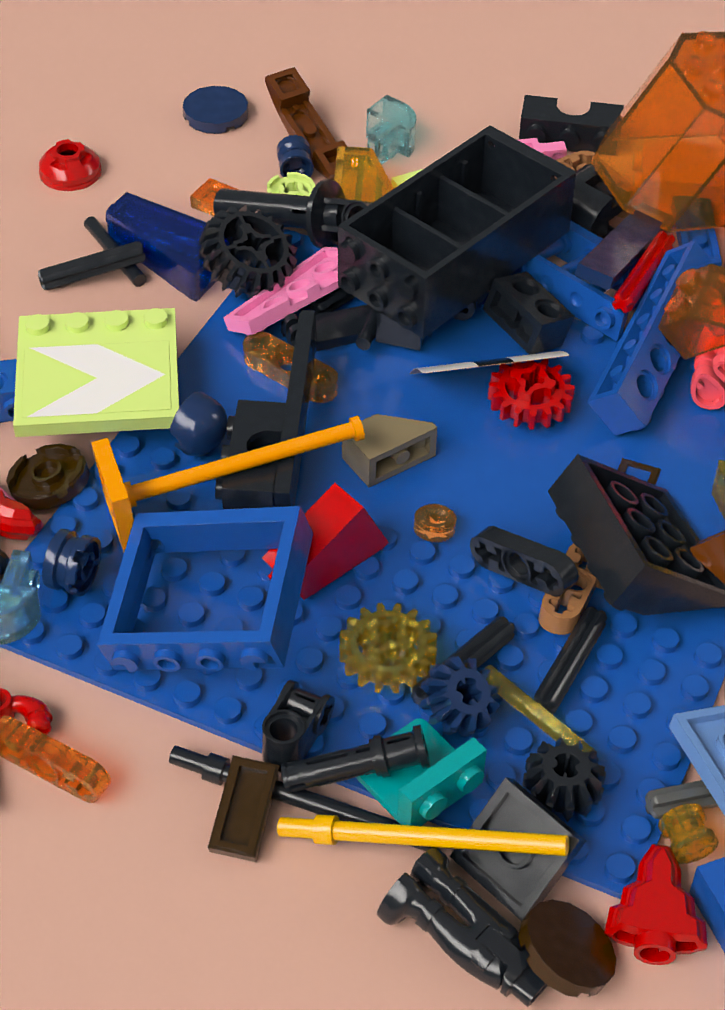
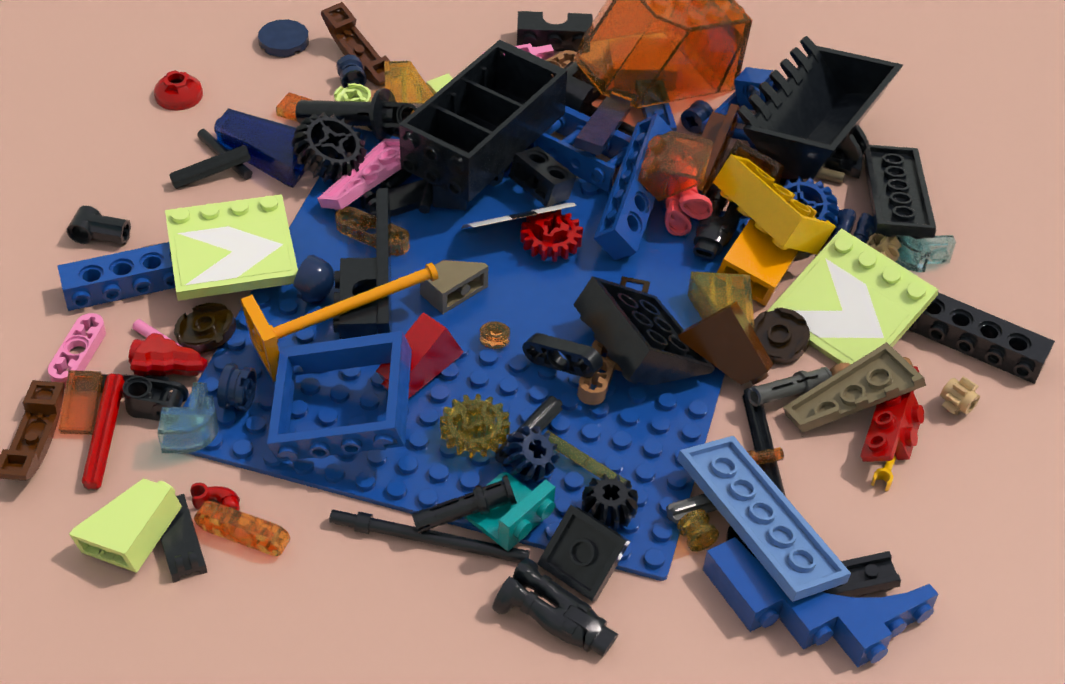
camera: 10 degrees left, 0 degrees up
(244, 808) = (388, 547): dark brown tile -> none
(294, 724) = (416, 486): black piece -> none
(330, 830) = (451, 555): yellow bar -> none
(391, 128) = (420, 43): clear light blue brick -> none
(567, 948) = (625, 614): dark brown tile -> none
(570, 659) = (603, 420): black axle -> none
(642, 273) = (621, 141): red axle -> none
(657, 912) = (682, 584): red rock -> none

